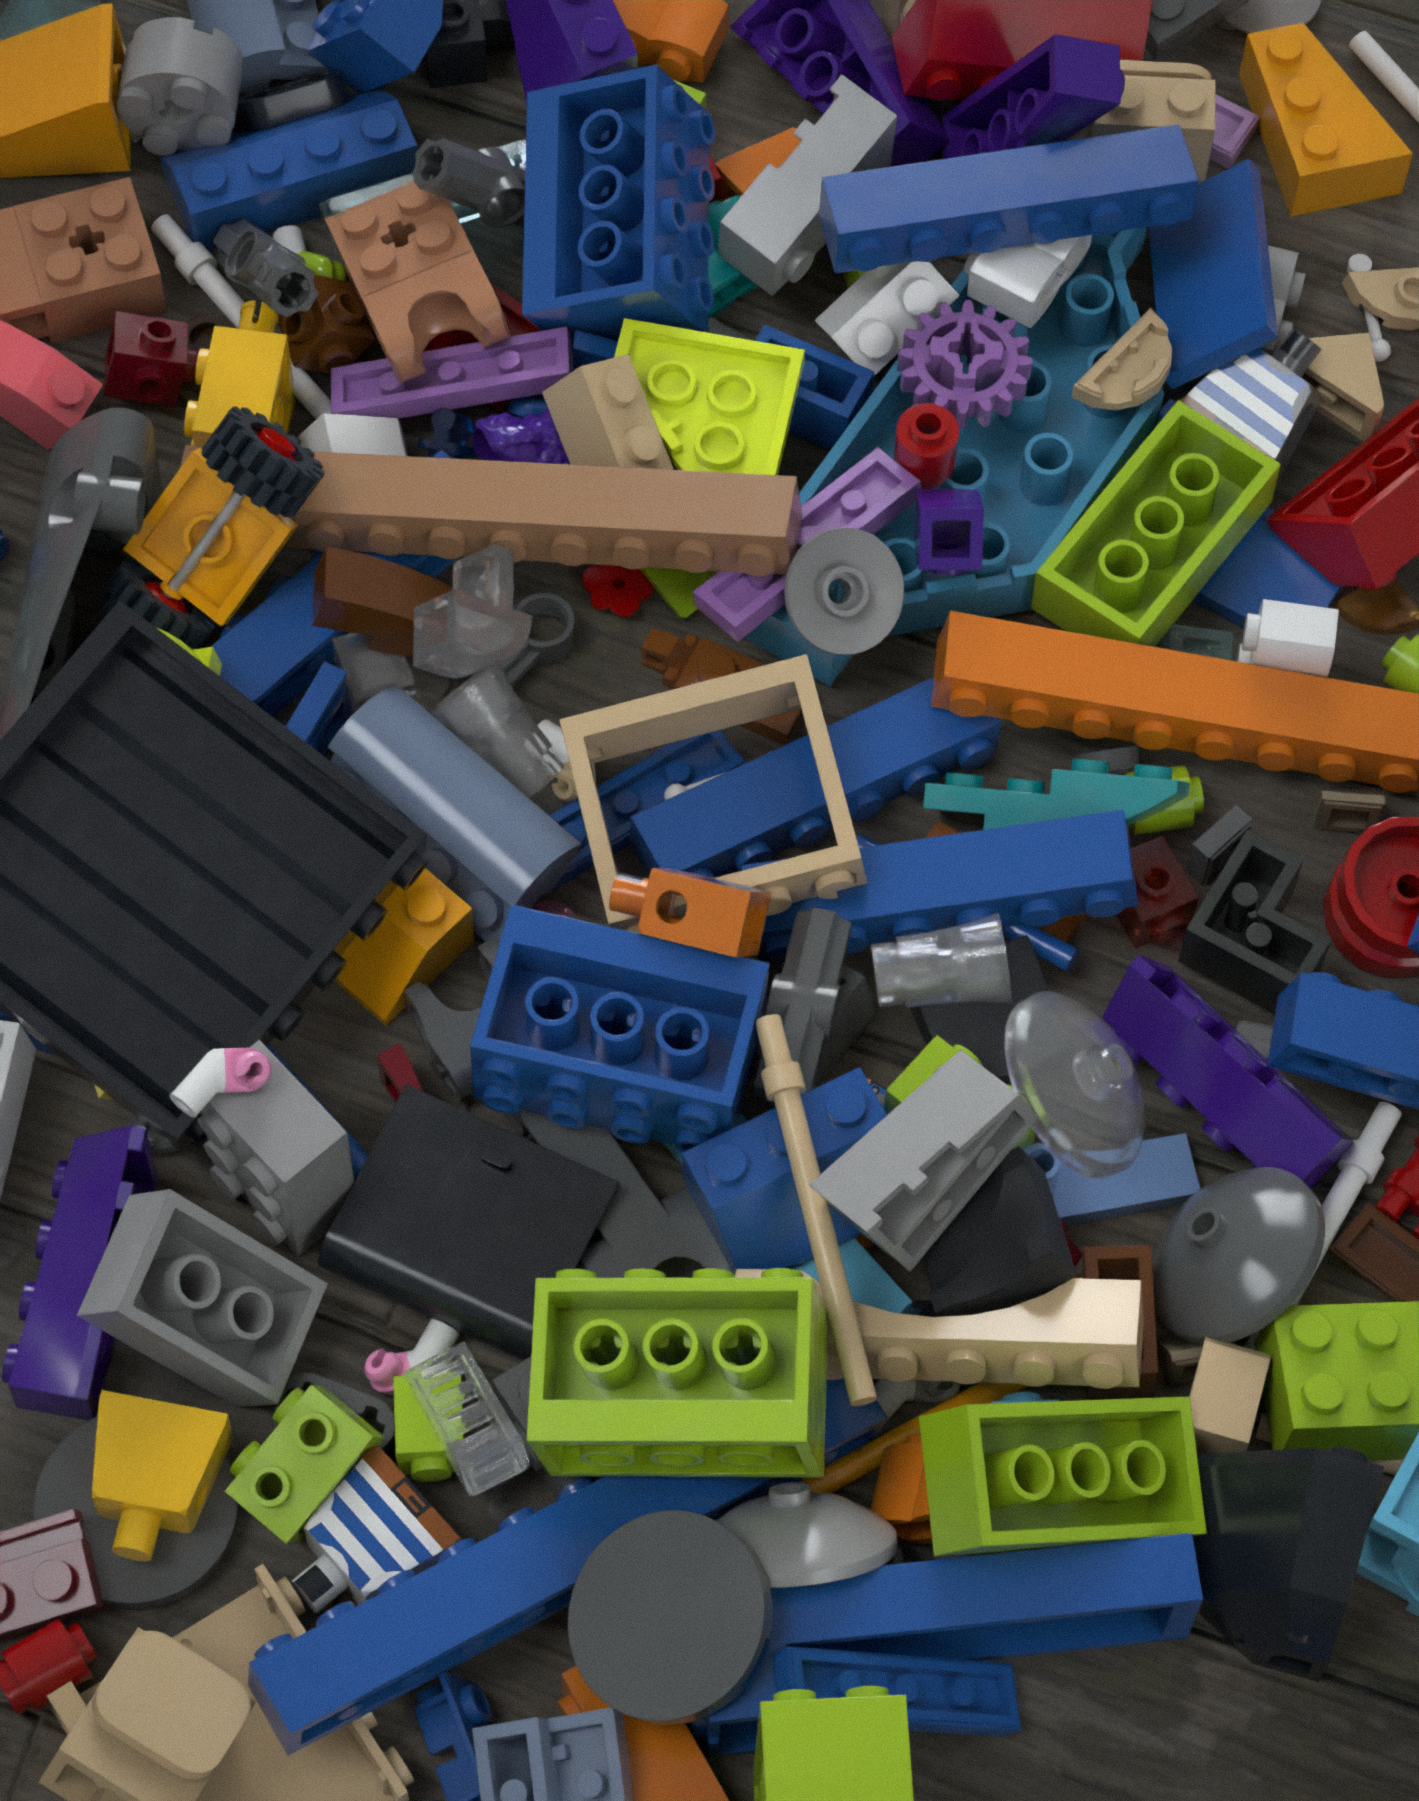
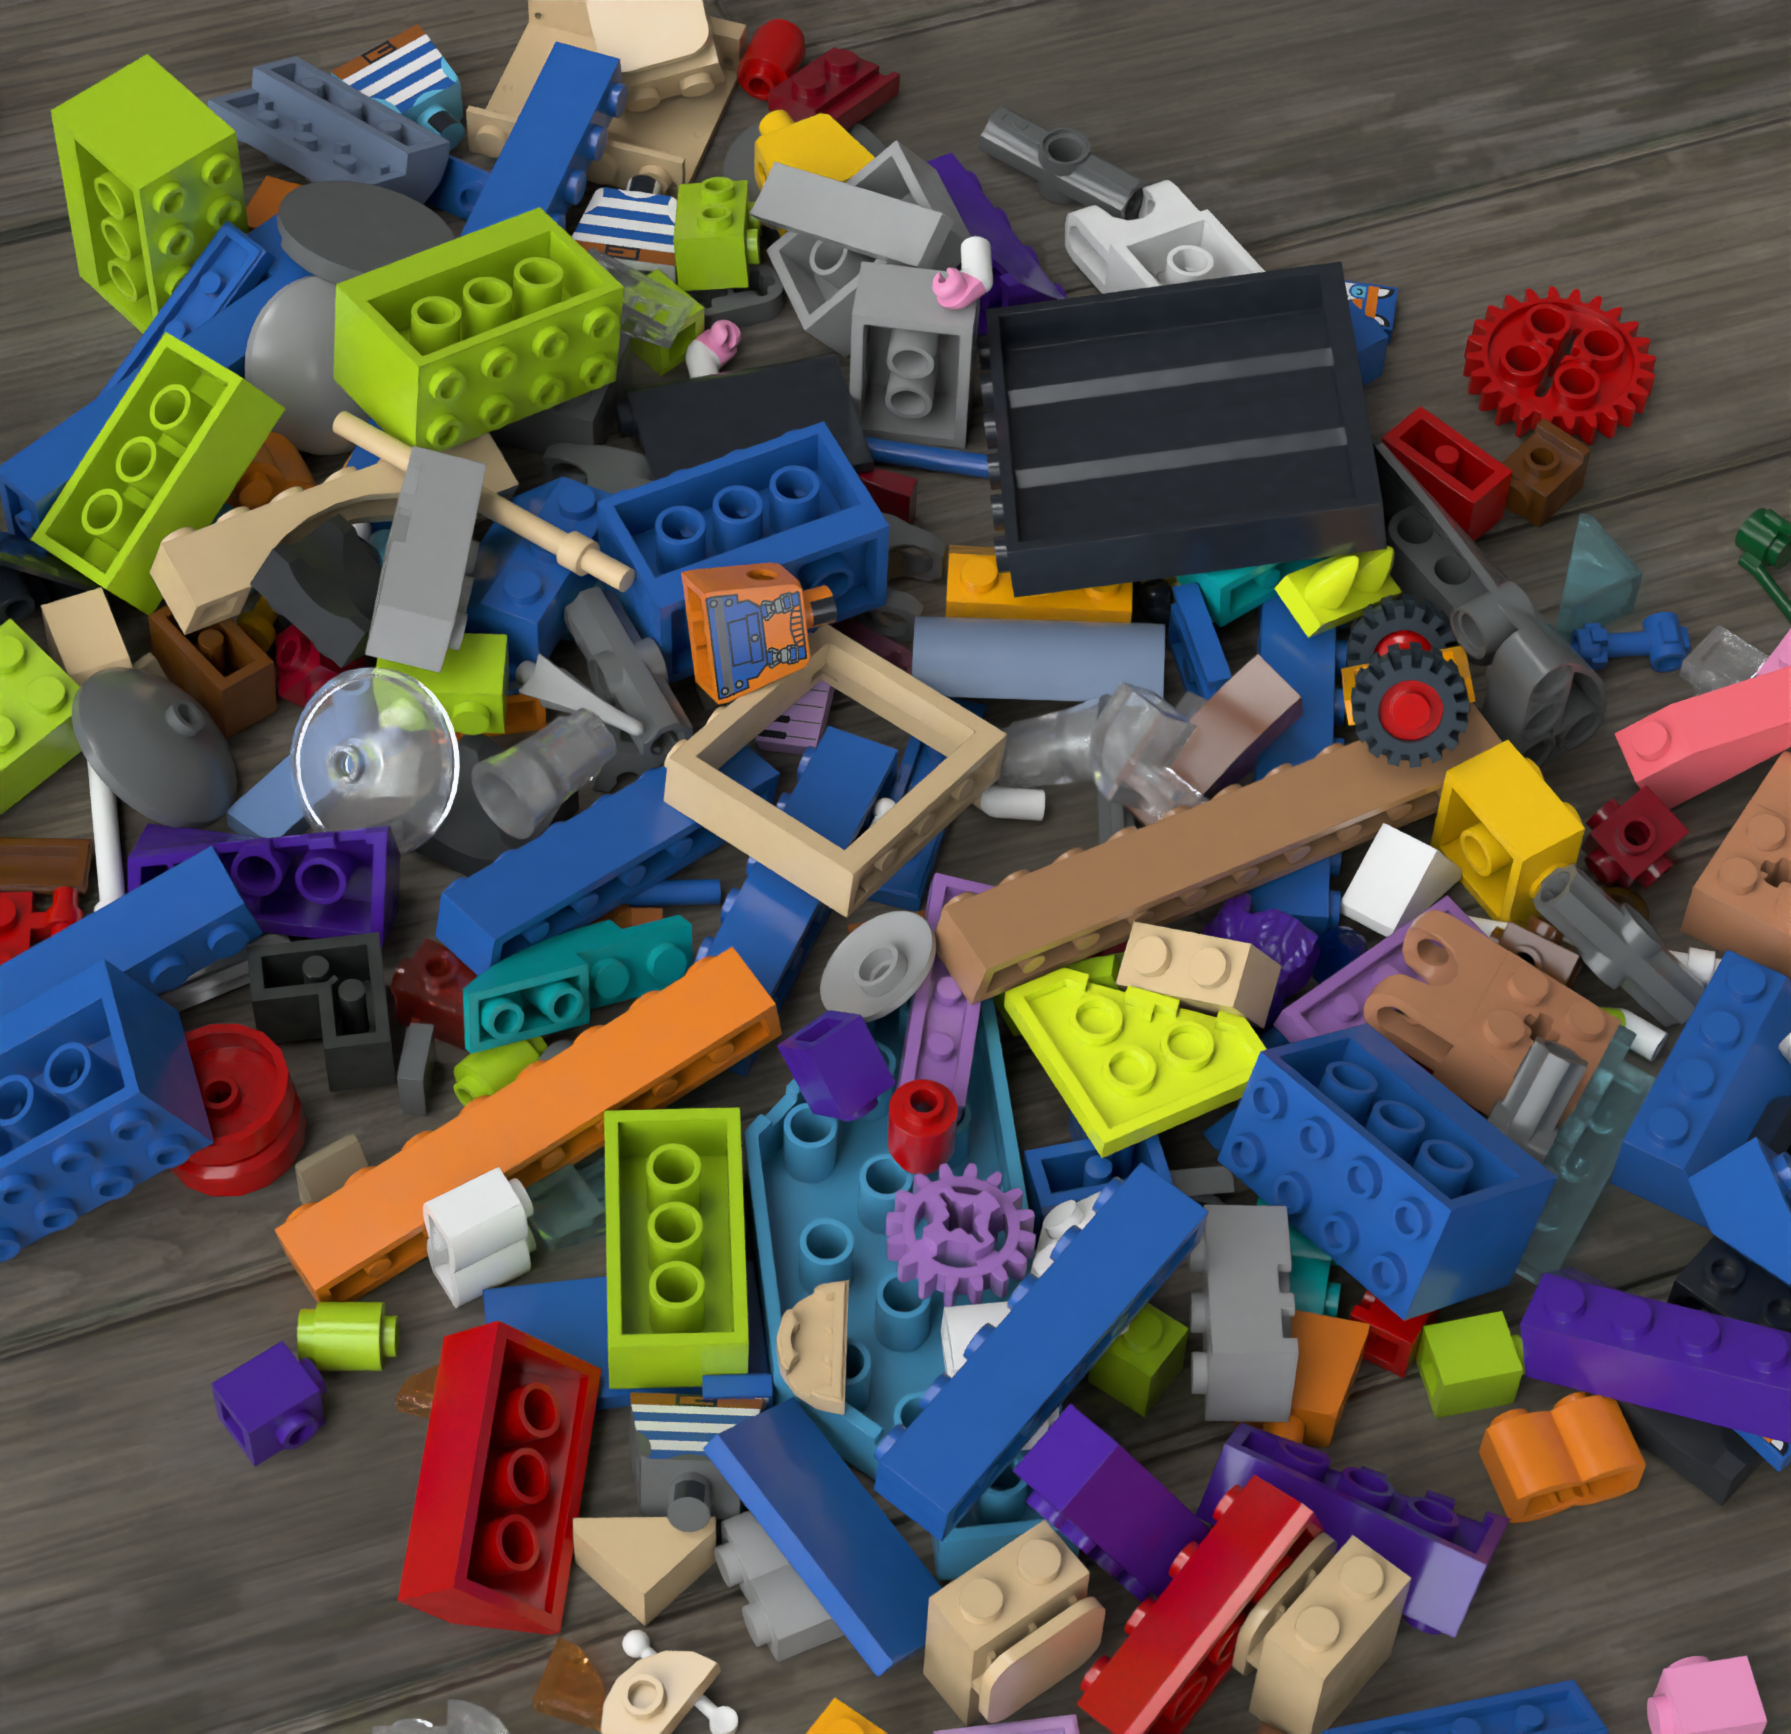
camera: 140 degrees right, 10 degrees down
(218, 1293) = (851, 217): none -> light grey tile
(866, 1033) = (563, 692): none -> light grey piece

